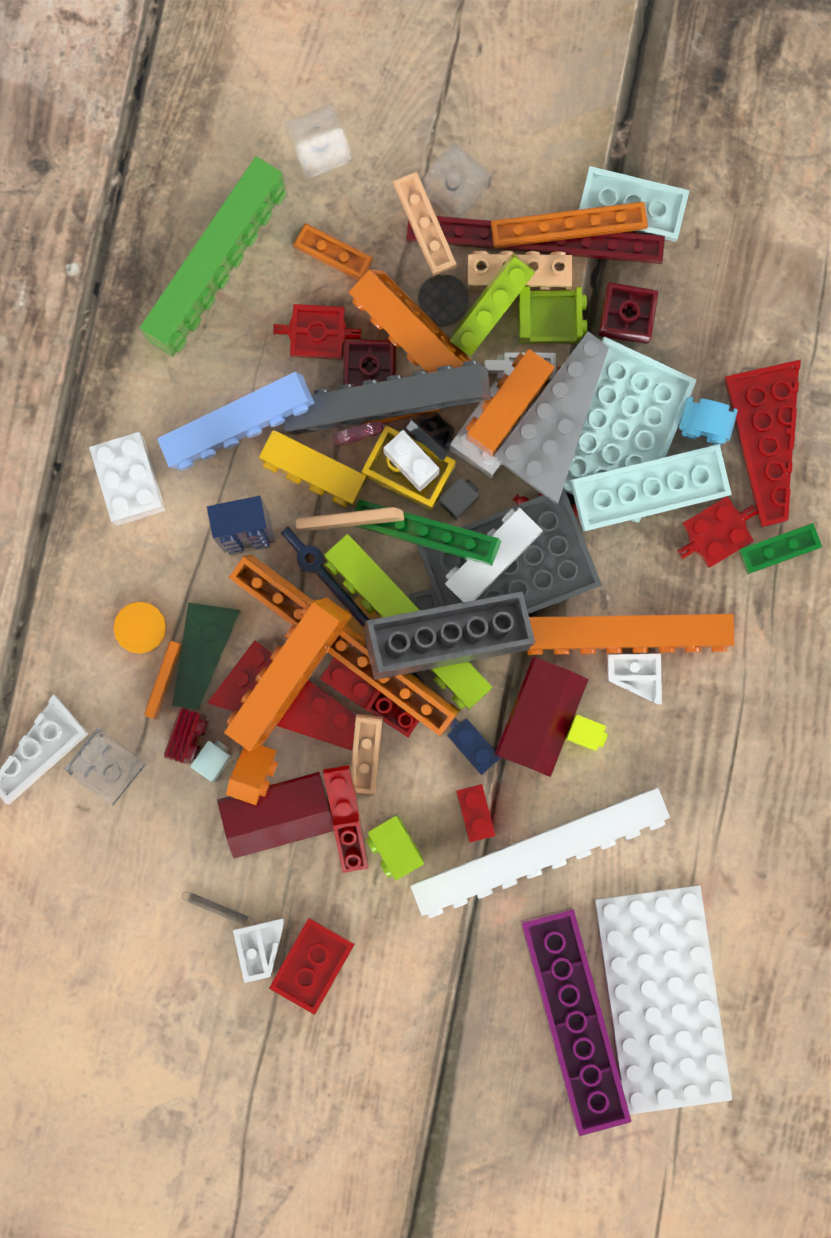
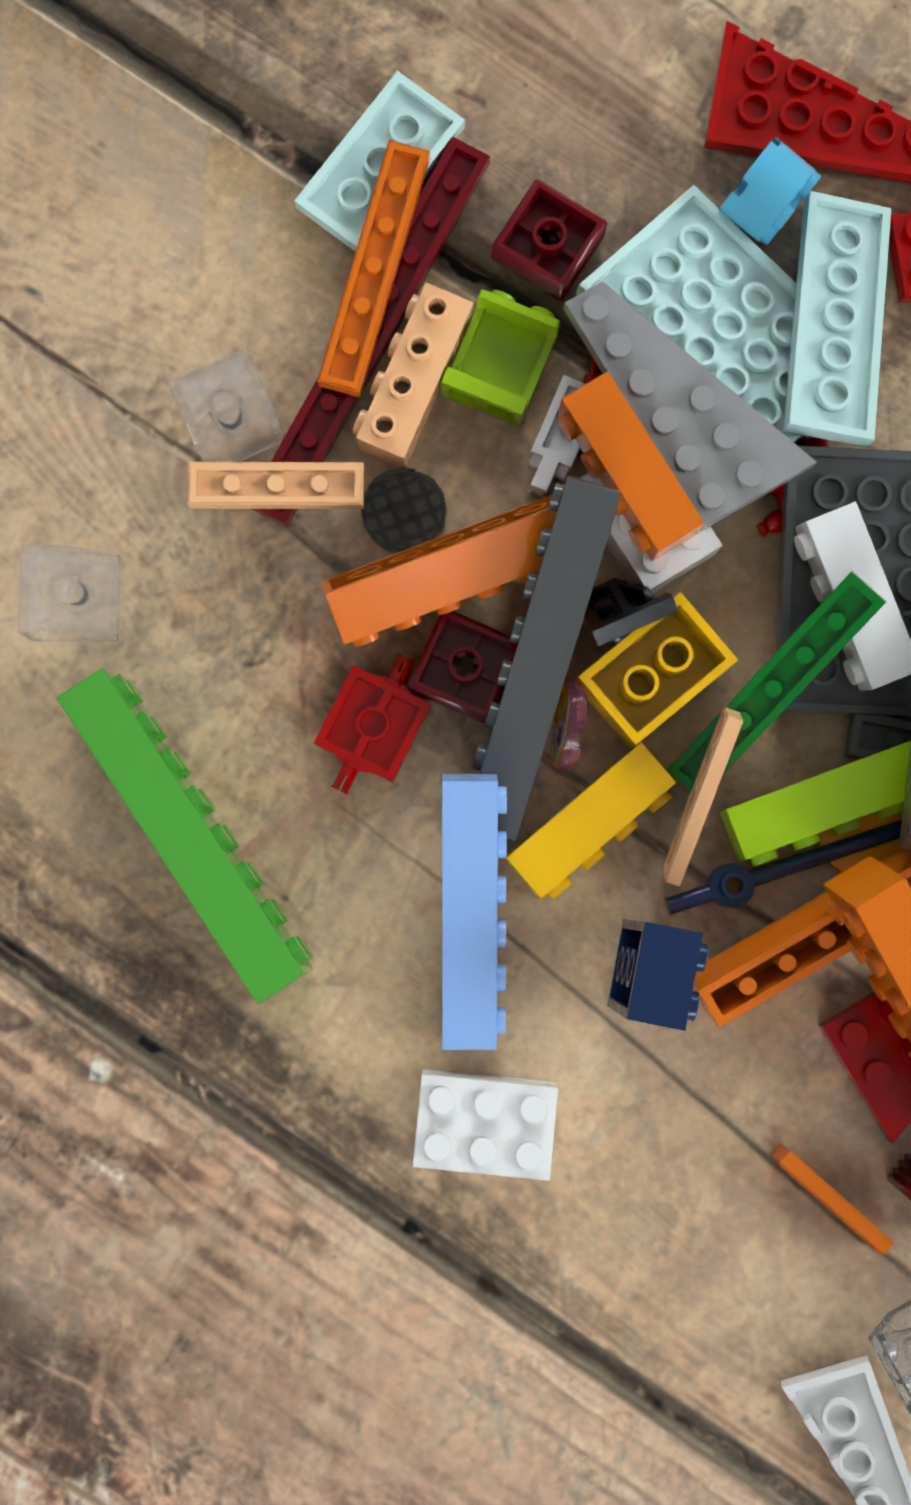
camera: 70 degrees left, 0 degrees up
(140, 627) = (728, 1201): light orange tile -> none
(202, 647) = (796, 1111): clear green wing -> none
(332, 252) = (254, 648): orange tile -> none
(411, 460) = (660, 657): white brick -> none
(459, 498) = (730, 612): dark grey brick -> none
(491, 304) = (454, 433): lime brick -> none

